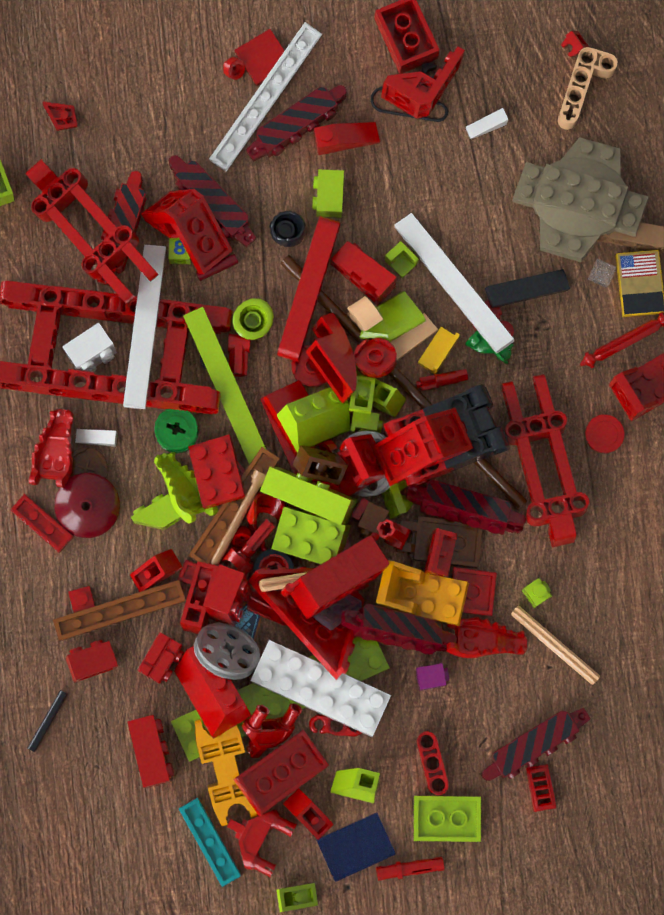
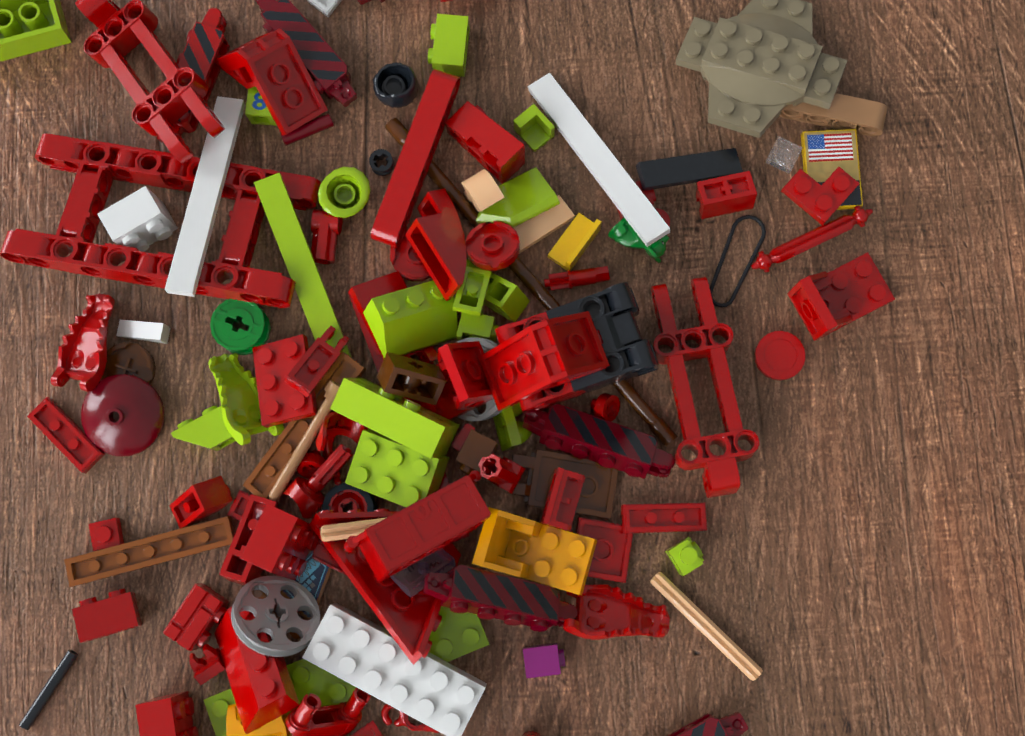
camera: 15 degrees right, 0 degrees up
(173, 694) = (207, 666): none -> red tile
(243, 456) = (315, 363): none -> red hinge
(281, 298) = (382, 170): none -> black bush
(470, 480) = (606, 406): none -> red tile
(519, 564) = (663, 518): none -> red tile
(557, 307) = (726, 194): none -> red hinge
(577, 364) = (748, 265): none -> black piece
(633, 308) = (818, 199): none -> red plate

